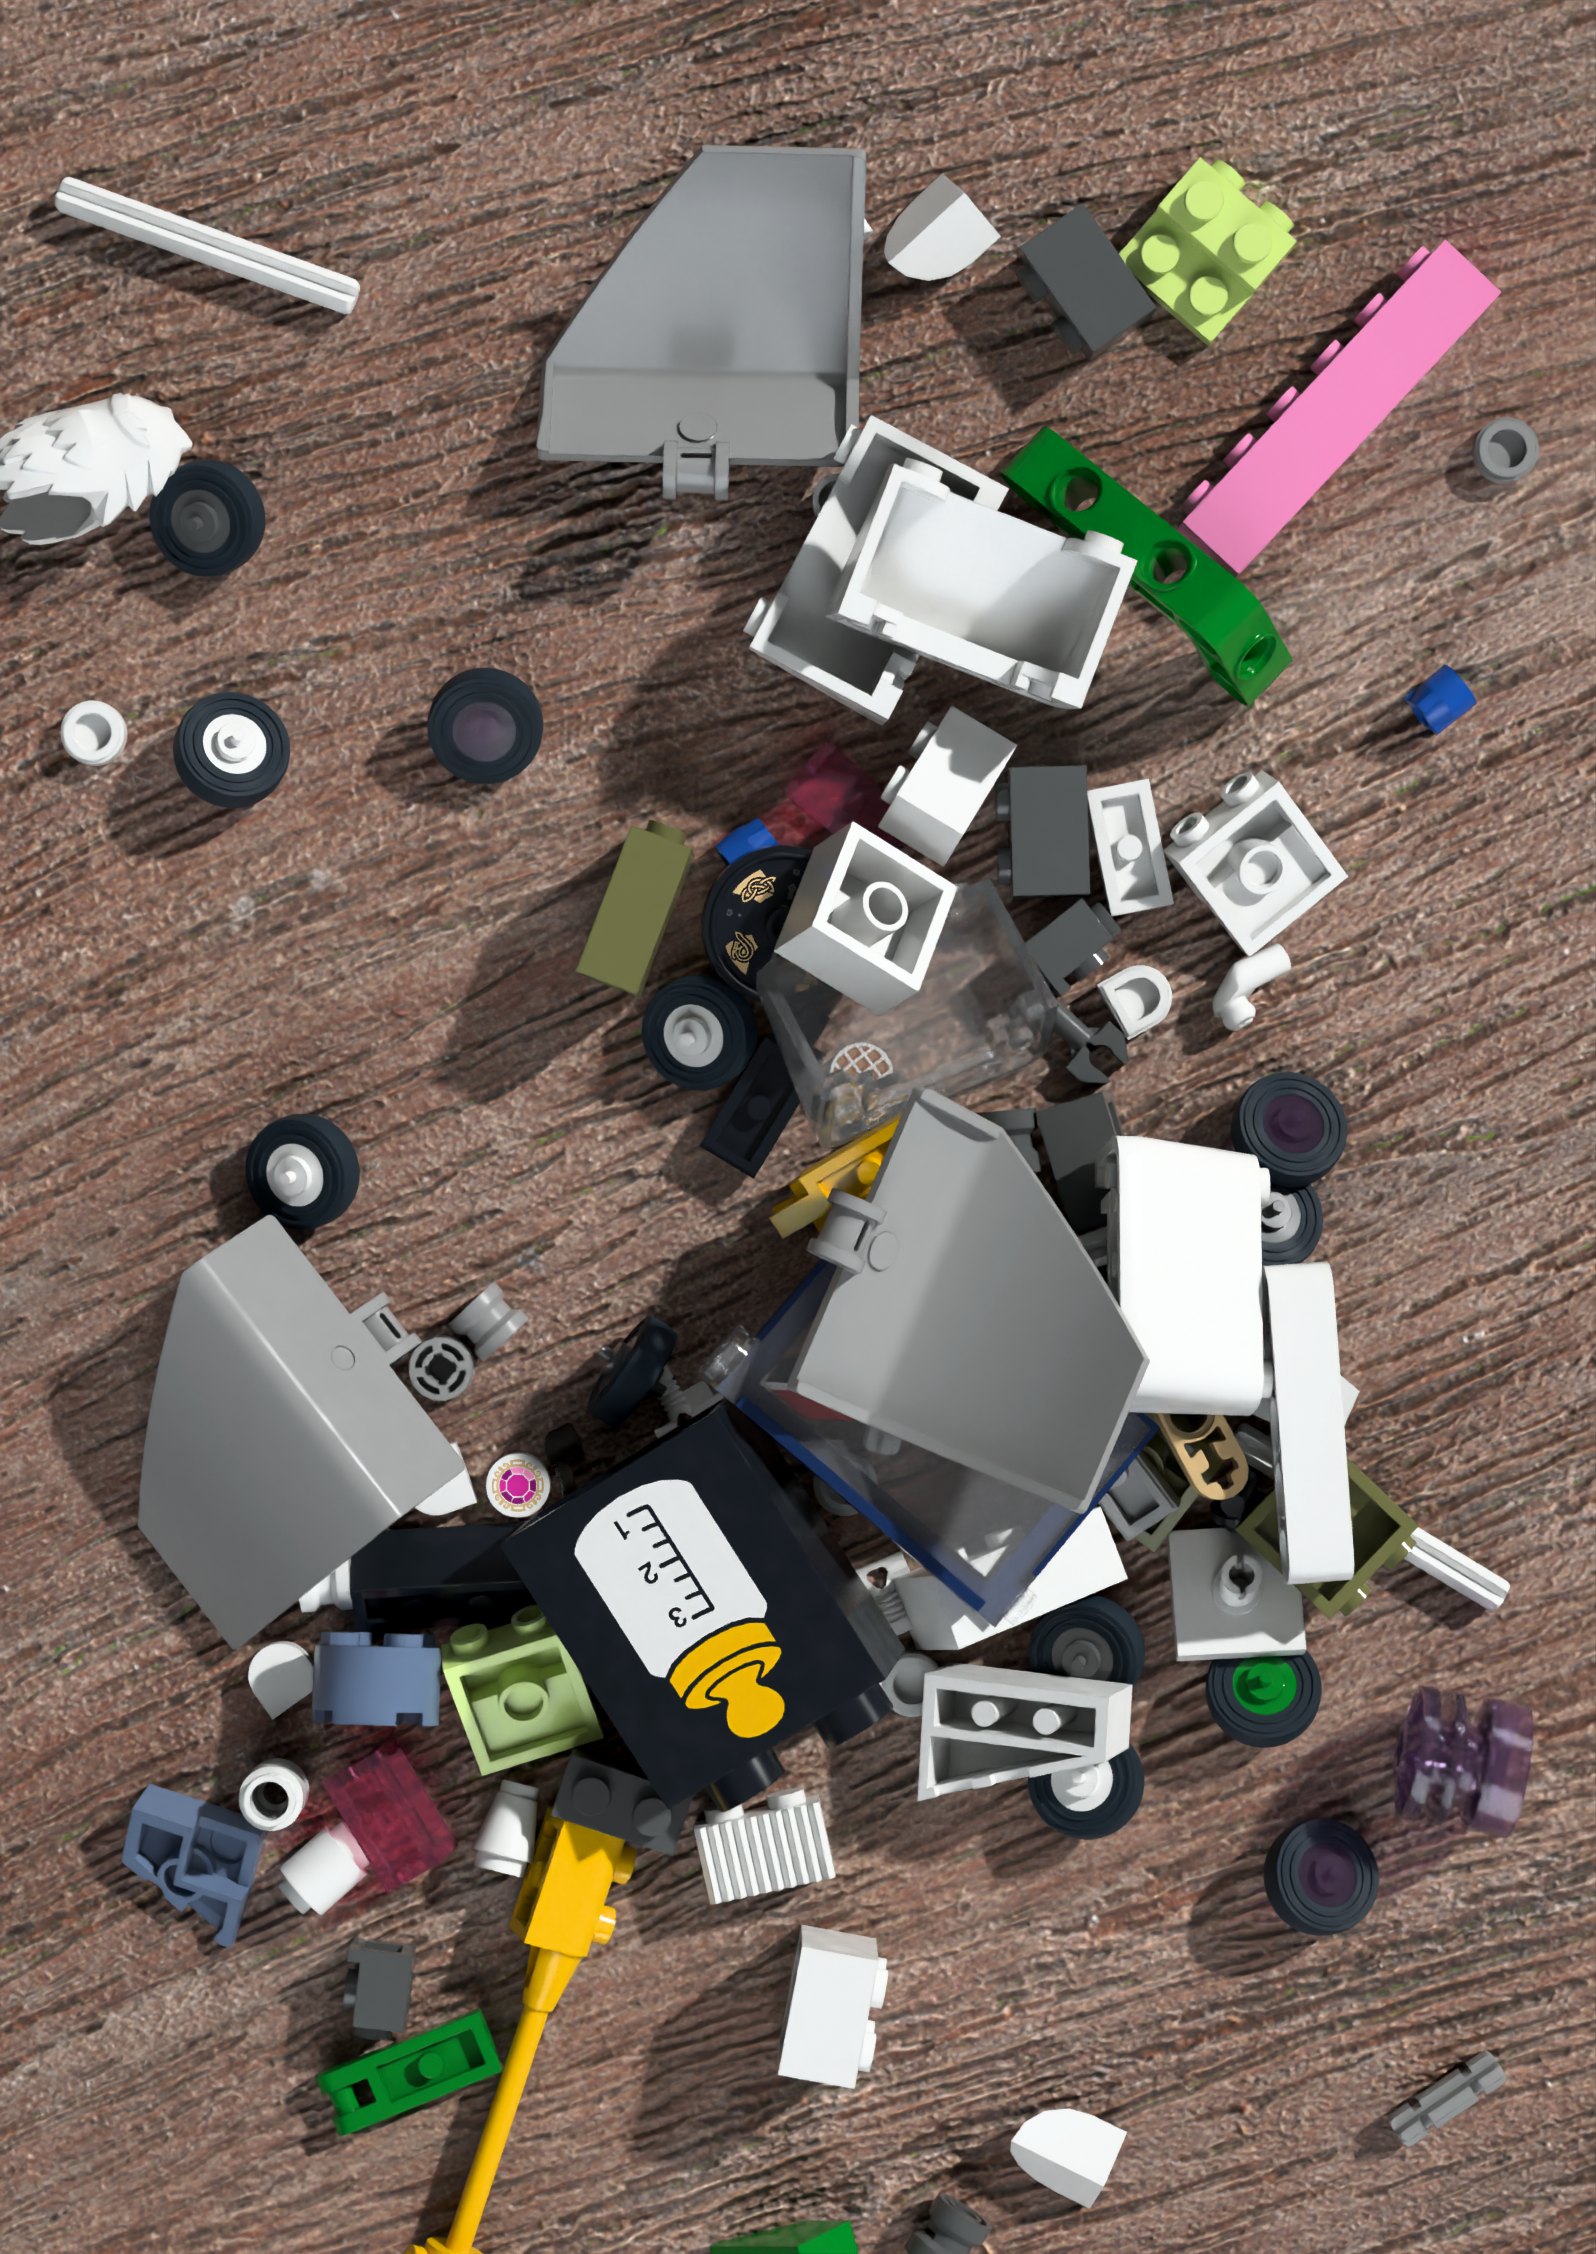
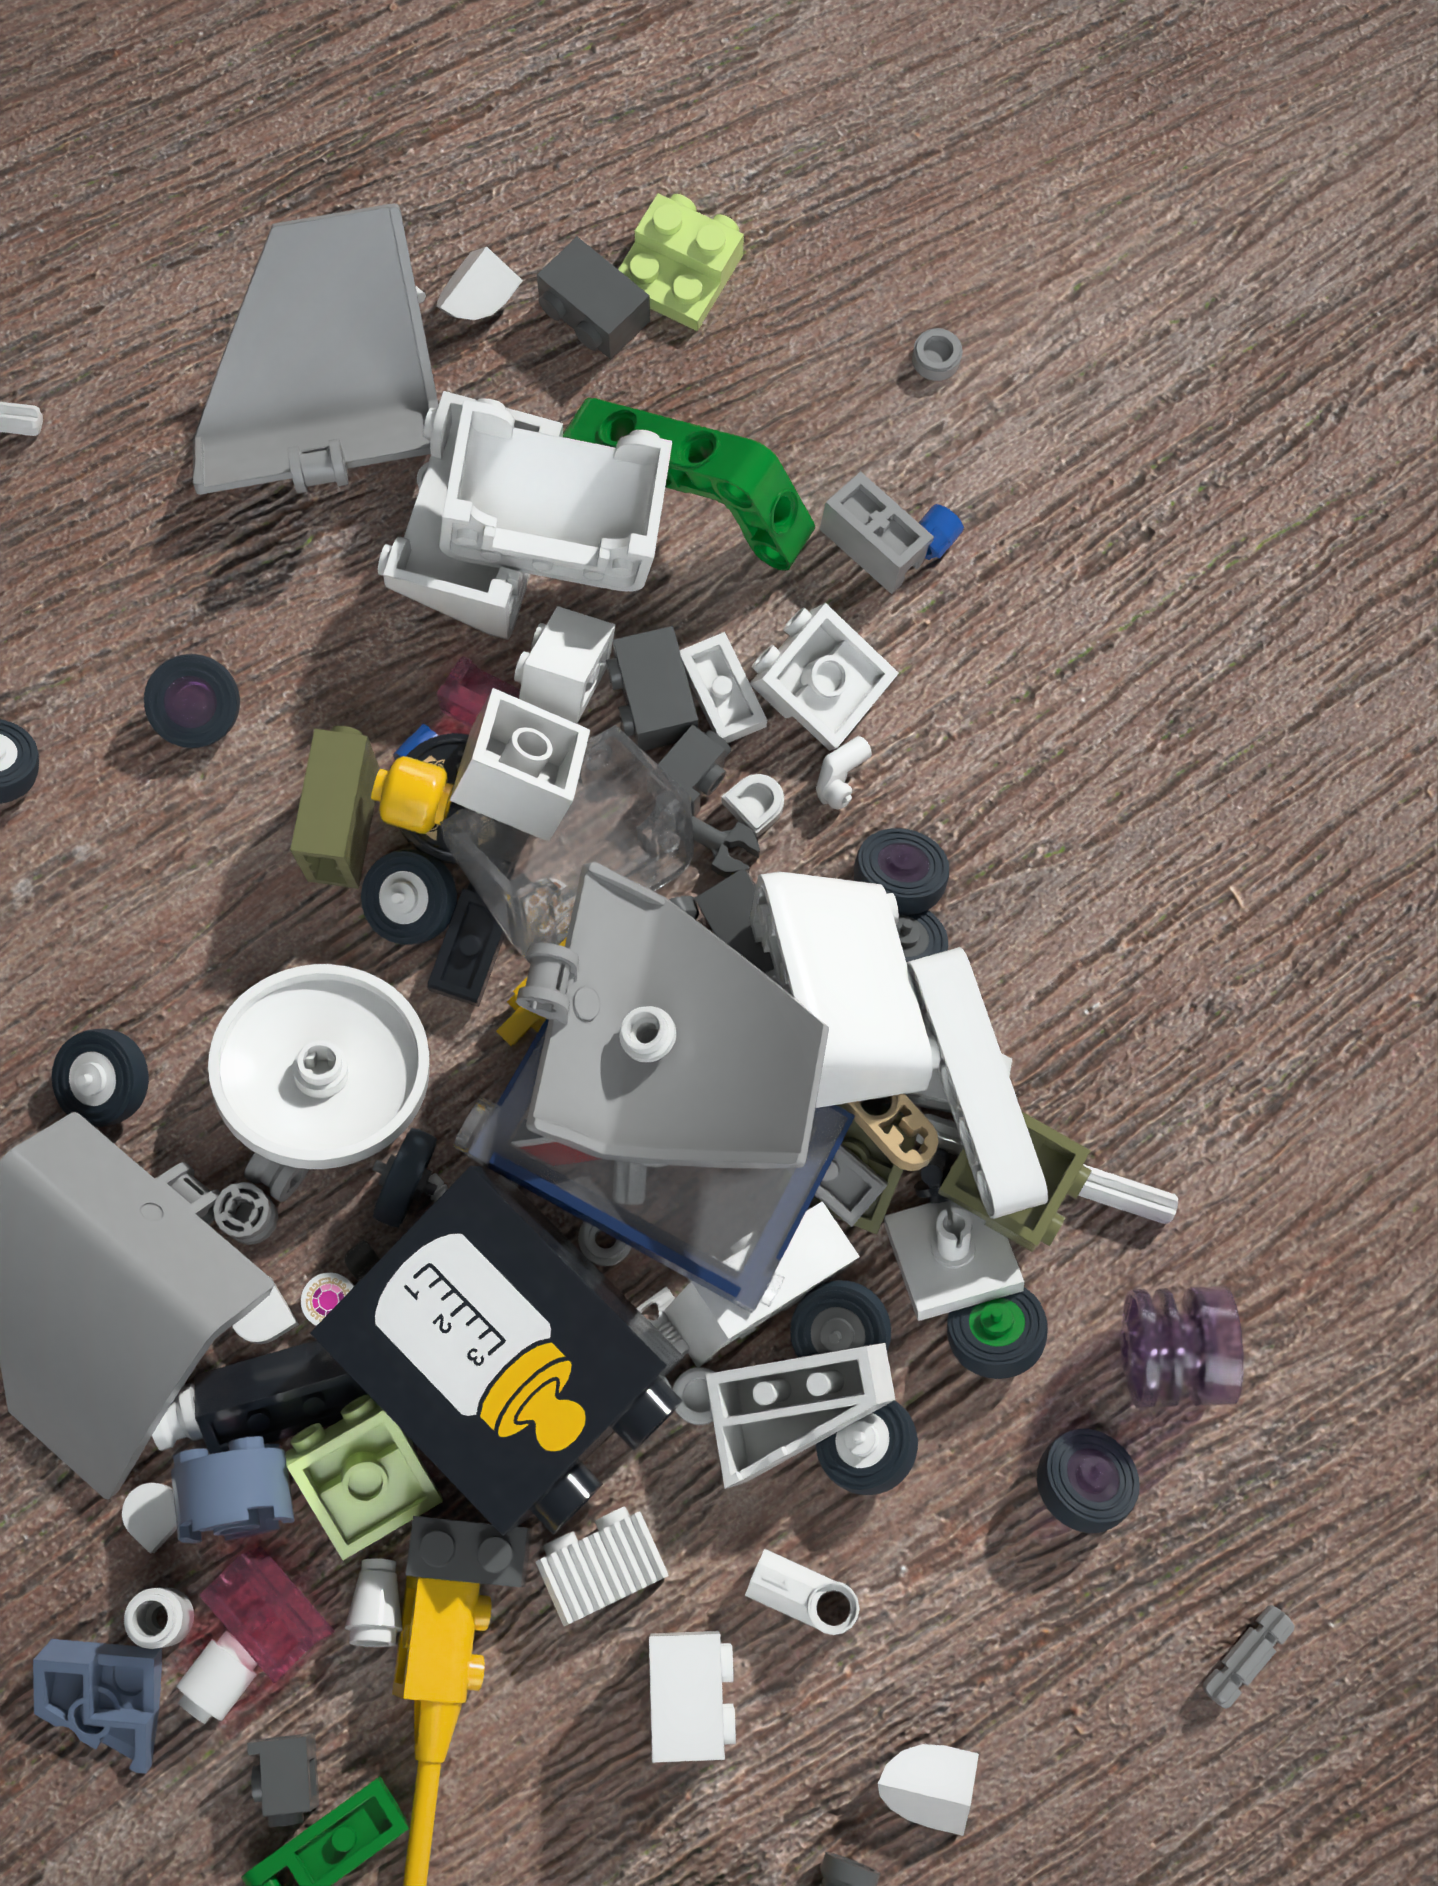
camera: 15 degrees left, 15 degrees down
(558, 1217) = (319, 1066): none -> white dish
(731, 928) = (412, 794): none -> yellow head
(931, 1284) = (640, 1021): none -> white plate
(972, 1922) = (796, 1591): none -> white piece
(1338, 409) = (811, 332): bright pink brick -> none
(1366, 686) = (875, 531): none -> light grey hinge

